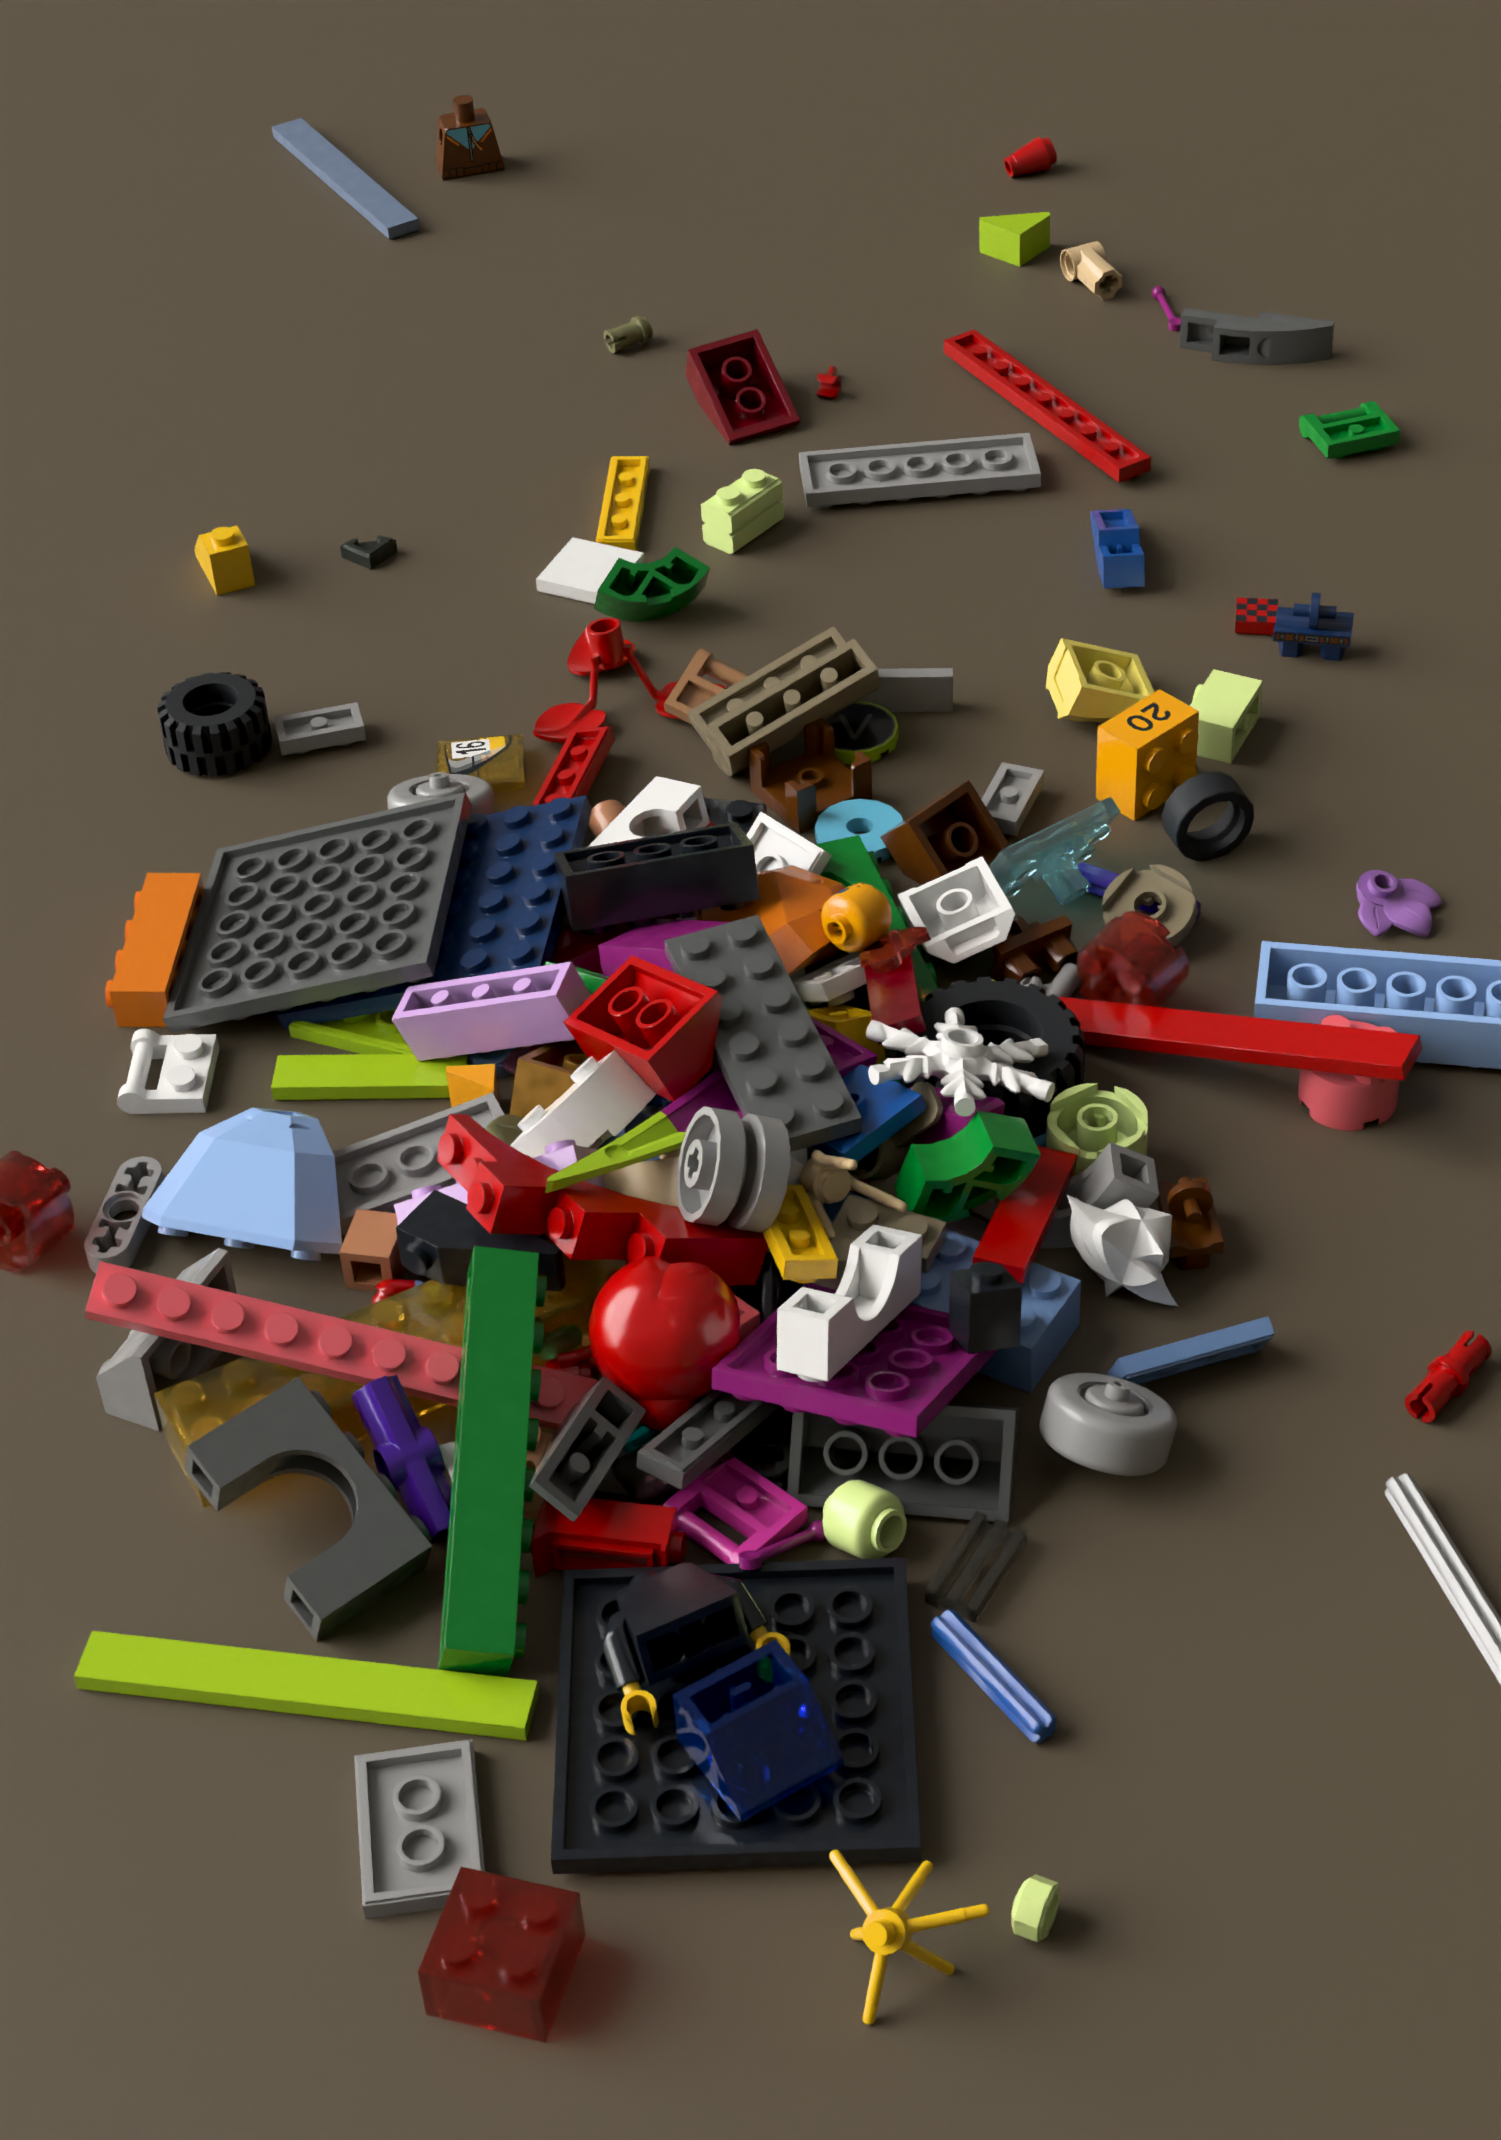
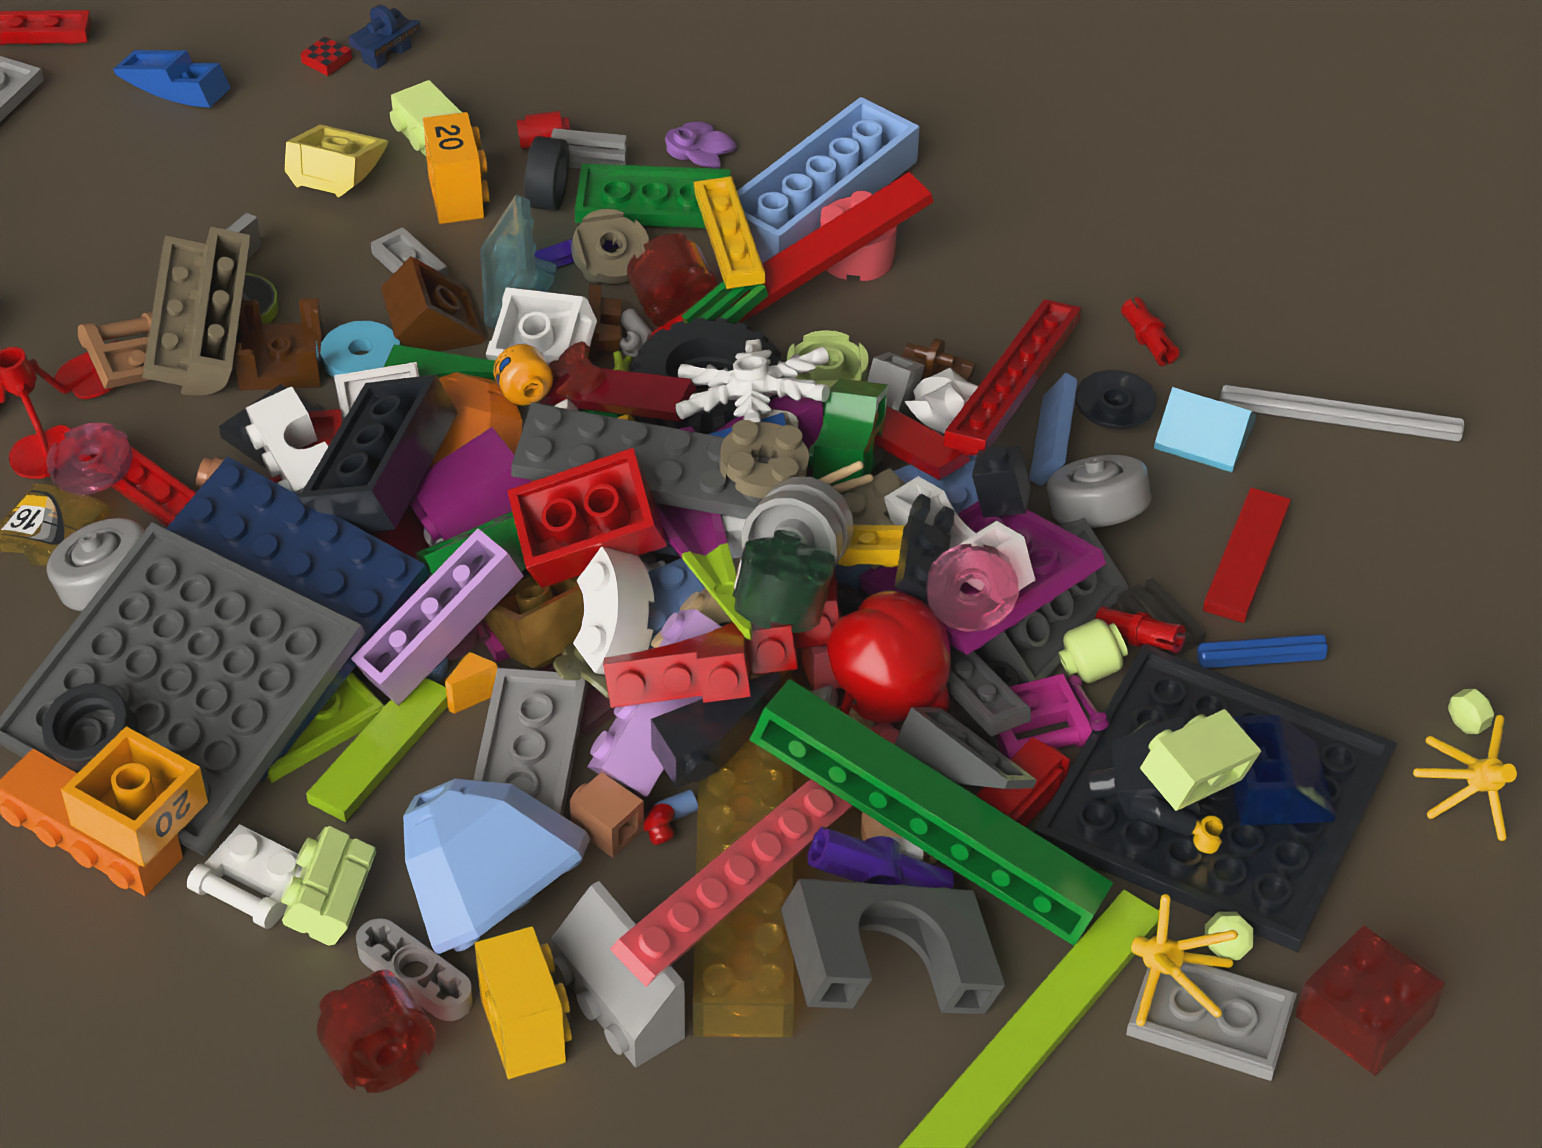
camera: 65 degrees left, 5 degrees up
(66, 1272) = (523, 1001): none -> yellow brick
(155, 939) = (135, 796): none -> light orange brick
(168, 1110) = (328, 885): none -> yellowish green brick
(231, 888) = (73, 706): none -> black tyre
(440, 1741) = (1167, 957): none -> yellow plant
(524, 1794) = (1228, 921): none -> yellowish green tile
(558, 741) = (95, 475): none -> clear pink tile
(619, 1171) = (783, 581): none -> clear green brick
(656, 1616) = (1199, 758): none -> yellowish green brick
(748, 1323) = (977, 610): none -> clear pink tile
(765, 1282) = (922, 546): none -> black hinge
(812, 1074) = (752, 440): none -> dark tan plate
(926, 1546) = (1143, 629): none -> red pin
(1125, 1017) = (720, 303): none -> green tile
(1146, 1605) = (1246, 555): none -> red tile
(1206, 1268) = (1012, 378): none -> red plate
(1214, 962) = (729, 232): none -> yellow tile
(1266, 898) = (644, 193): none -> green plate
(1289, 792) = (540, 125): none -> red brick
(1289, 1386) = (1115, 399): none -> black dish
(1291, 833) = (589, 151): none -> light grey tile
(1328, 1486) = (1204, 429): none -> medium azure slope

